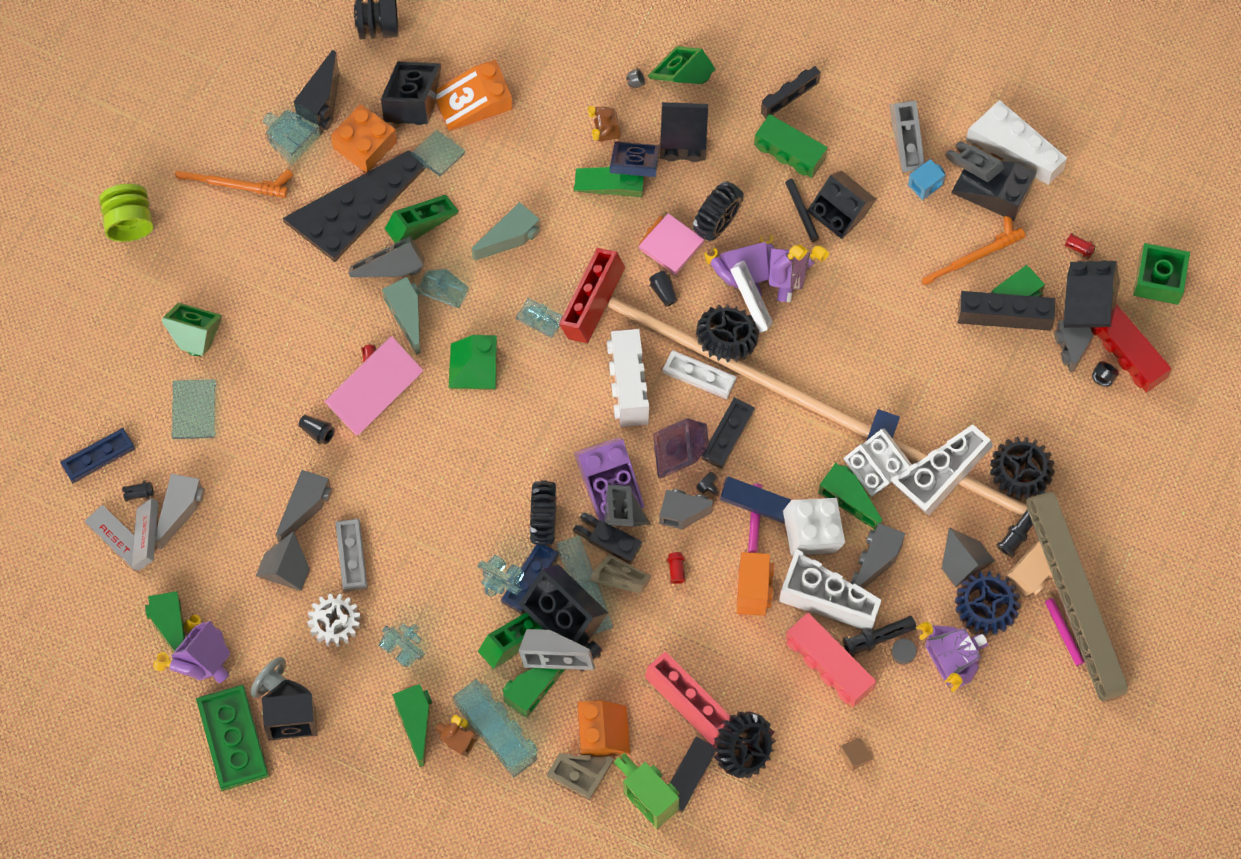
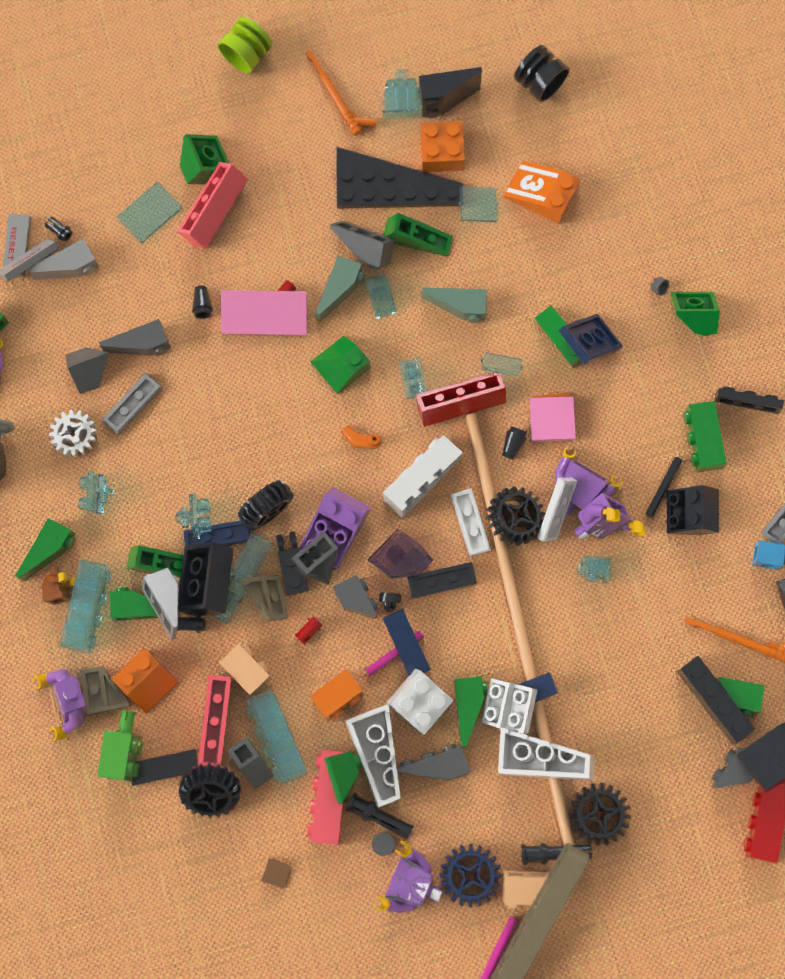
camera: 55 degrees right, 10 degrees up
(97, 455) = (63, 181): dark blue tile -> none
(241, 350) = (212, 205): none -> coral brick
(411, 93) = (505, 146): black slope -> none
(554, 401) = (361, 441): none -> orange arm
(565, 800) = (68, 698): none -> medium lavender torso
(591, 242) = (501, 364): none -> clear light blue piece
(605, 124) = (604, 296): dark orange piece -> none
(669, 637) = (245, 669): none -> light nougat brick
(683, 131) = (642, 354): black slope -> none
(718, 211) = (604, 429): black gear -> none
(744, 661) = (277, 737): none -> clear light blue brick
(747, 696) = (250, 763): none -> dark grey slope
(823, 312) = (594, 568): none -> clear light blue brick
(825, 626) = (343, 773): none -> green slope
(963, 557) = (493, 828): dark grey slope -> none
(1105, 371) = (731, 814): black tile -> none

